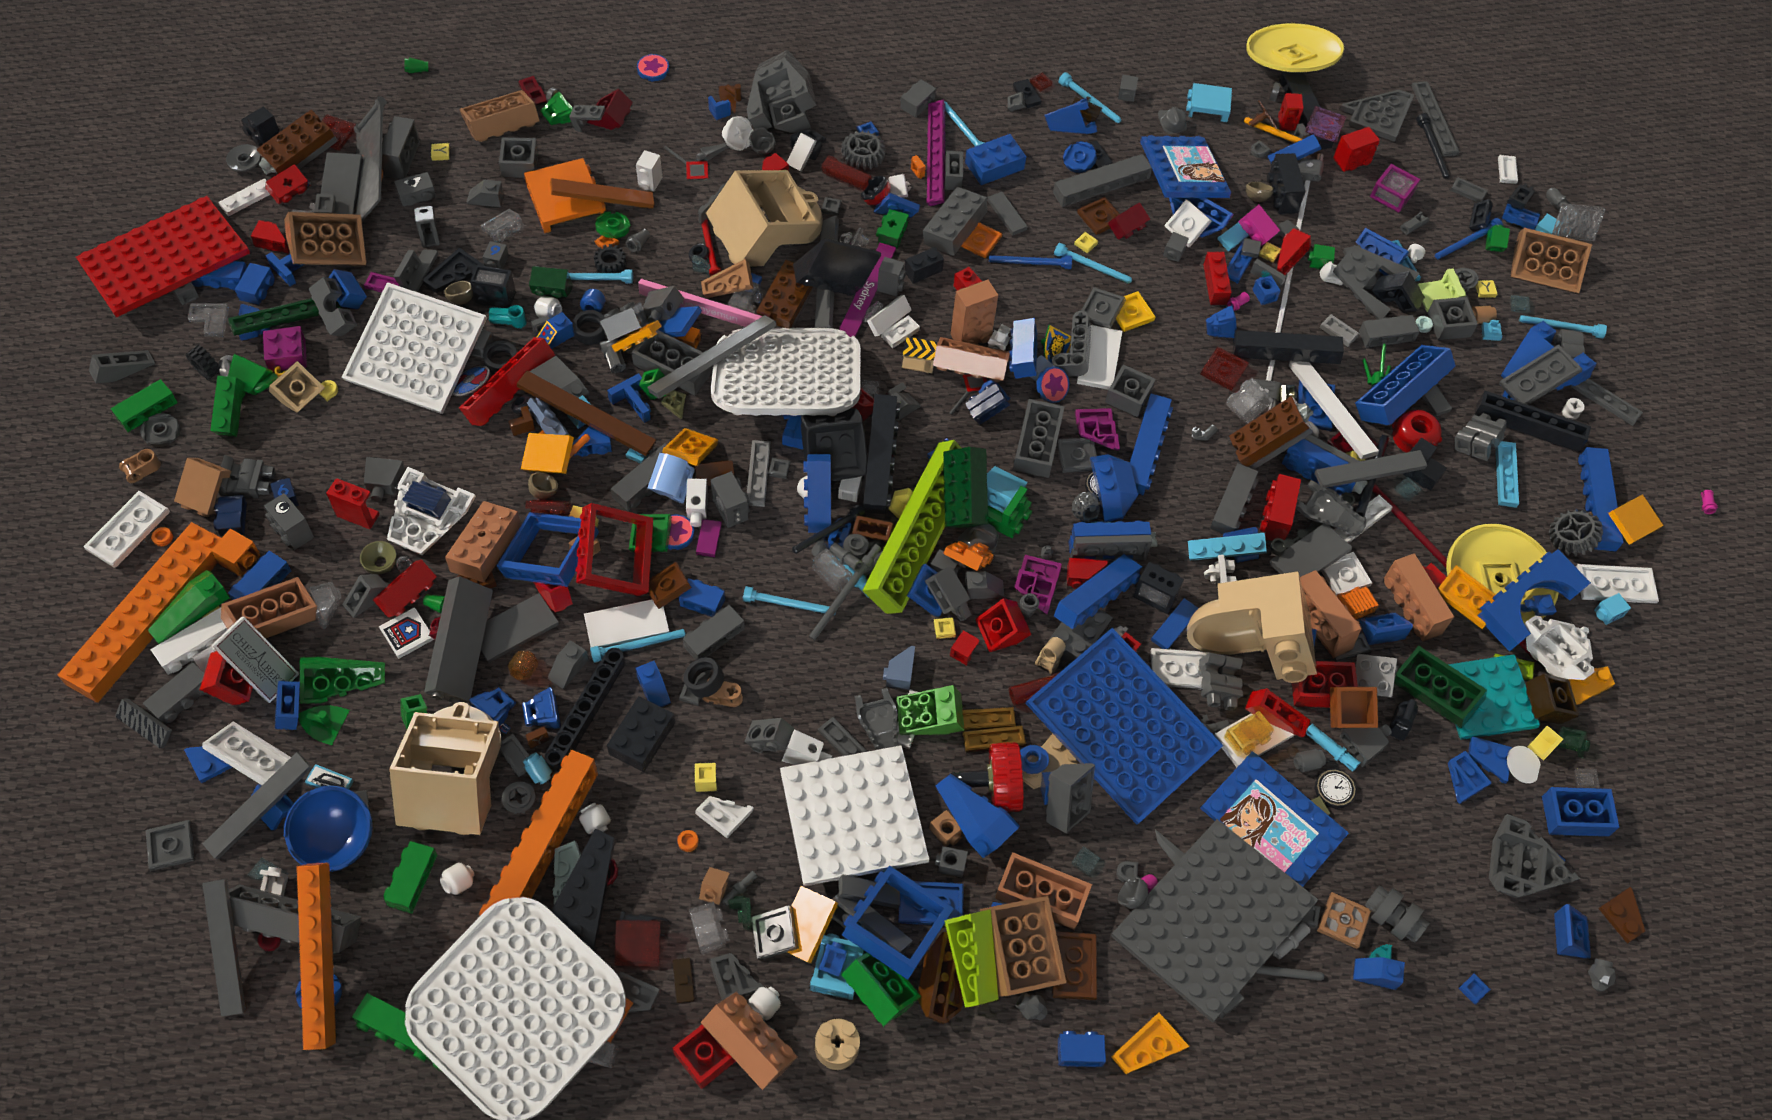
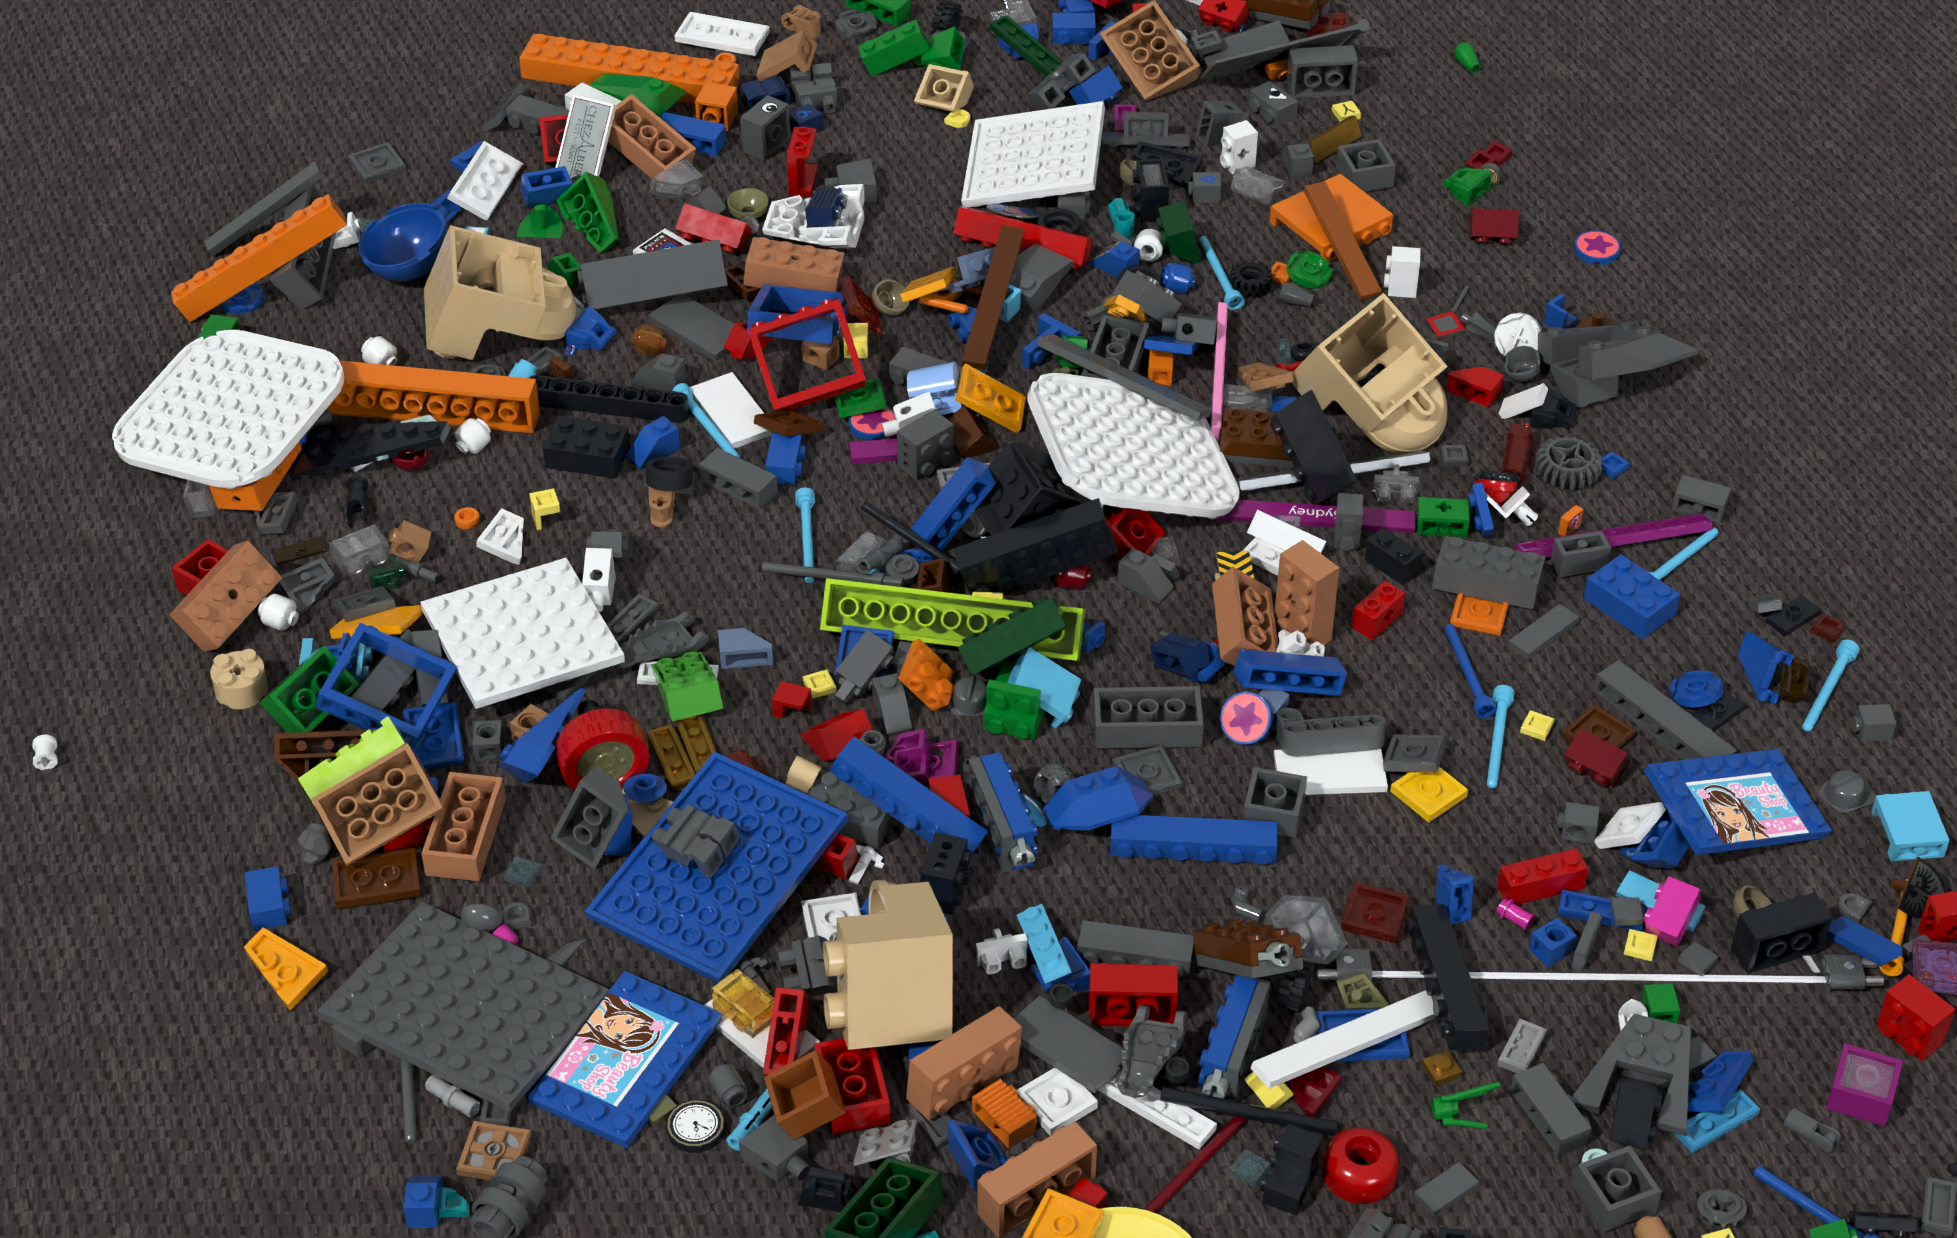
camera: 80 degrees right, 15 degrees down
(257, 805) = (426, 194): dark grey tile -> none
(284, 348) = (994, 70): magenta piece -> none
(410, 877) = (374, 320): green brick -> none
(466, 221) = (1239, 146): none -> white brick
(472, 164) = (1337, 135): none -> pearl gold tile
(500, 115) = (1426, 138): medium nougat slope -> none
(546, 710) = (600, 368): blue piece -> none
(582, 113) = (1463, 199): dark grey bracket -> none
(637, 943) = (331, 499): clear red plate -> none
(1055, 343) = (1318, 702): shield -> none
(1097, 426) = (1198, 782): magenta slope -> none
(1108, 736) = (697, 838): none -> dark grey hips
(1293, 248) = (1642, 961): red slope -> none
(1346, 373) = (1441, 1068): none -> pearl gold plate
(1370, 469) = (1228, 1072): dark grey tile -> none
(1405, 384) = (1438, 1129): blue brick -> none
(1416, 252) = (1744, 1133): white tile -> none
(1446, 288) = (1676, 1174): yellowish green bracket -> none

